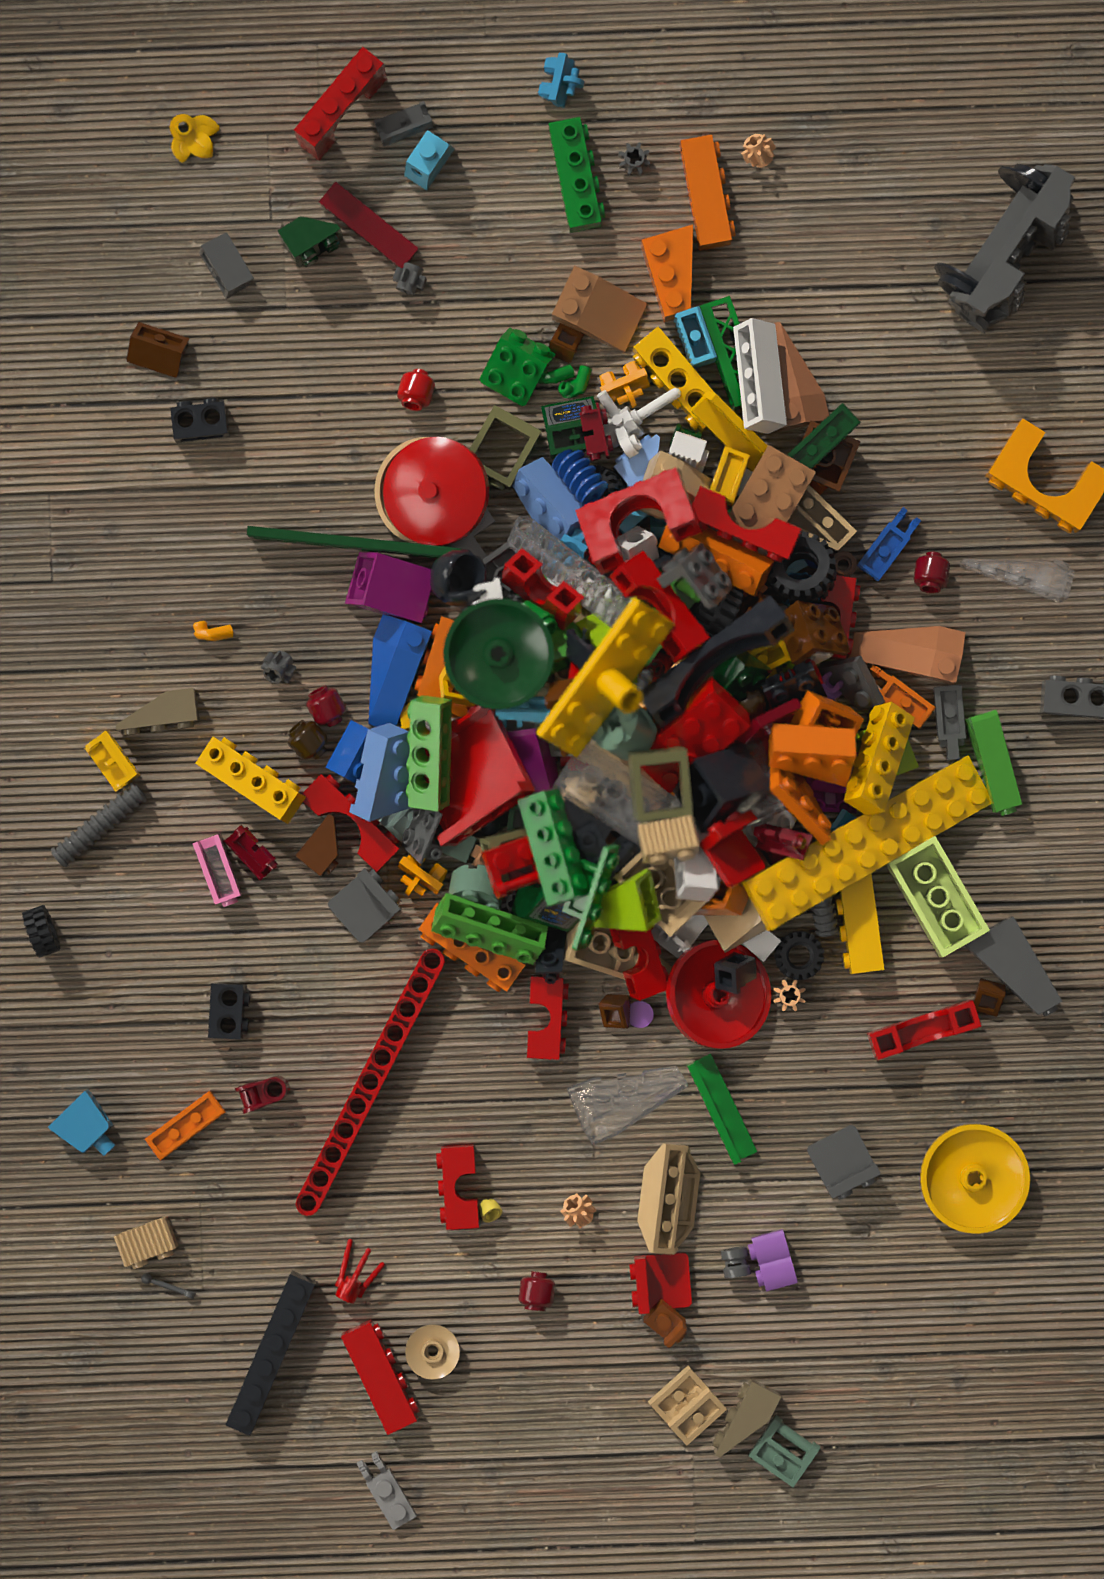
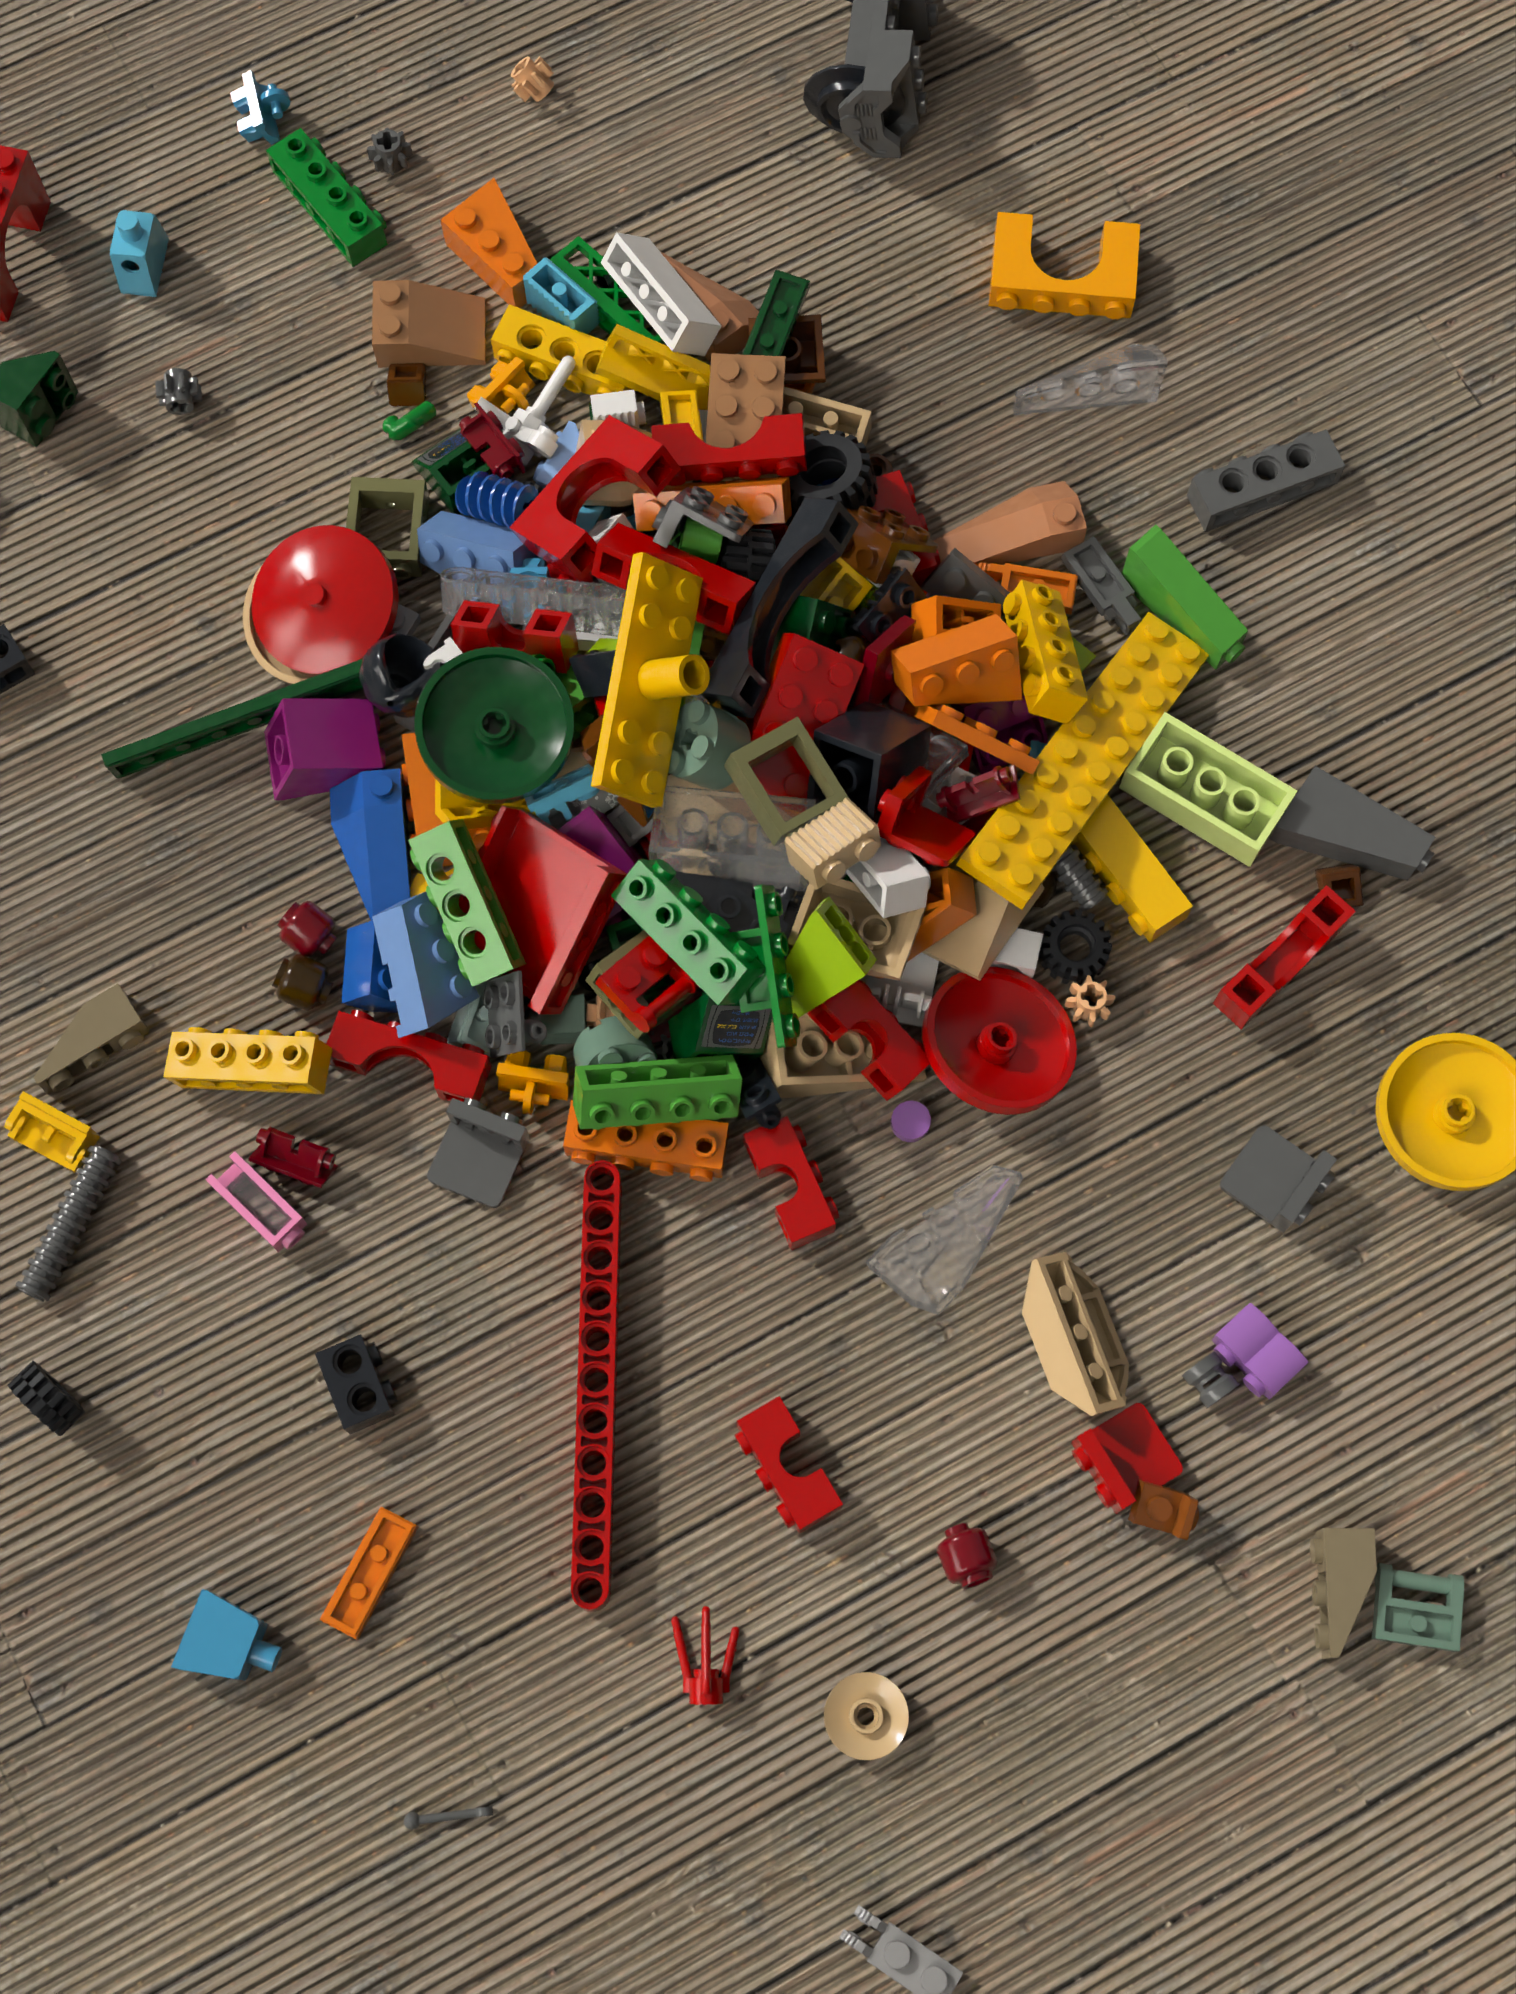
camera: 30 degrees left, 15 degrees down
(146, 1241) = (387, 1765): tan brick -> none
(212, 634) = (104, 916): light orange arm -> none
(258, 1095) = (453, 1474): dark red piece -> none
(271, 1353) = (639, 1838): black arch -> none
(278, 667) = (221, 910): dark grey gear -> none
(321, 848) = (384, 1110): reddish brown slope -> none
(368, 225) = (105, 360): dark red tile -> none
(380, 1377) = (811, 1791): red brick -> none
(403, 124) = (91, 237): dark grey hinge -> none
(416, 390) = (246, 509): red head -> none
(489, 1210) = (846, 1477): light yellow hinge -> none
(516, 366) = (358, 432): green bracket -> none
(576, 386) = (446, 422): green arm -> none
(578, 1210) = (965, 1415): light nougat gear -> none
(615, 1011) = (877, 1131): reddish brown slope -> none
(687, 1405) = (1253, 1612): tan slope -> none
(706, 193) = (493, 148): orange brick -> none
(721, 1108) = (1081, 1189): green fence -> none
(734, 972) = (1005, 997): black brick -> none
(887, 547) = (916, 428): blue hinge -> none
(931, 572) = (986, 429): dark red head -> none

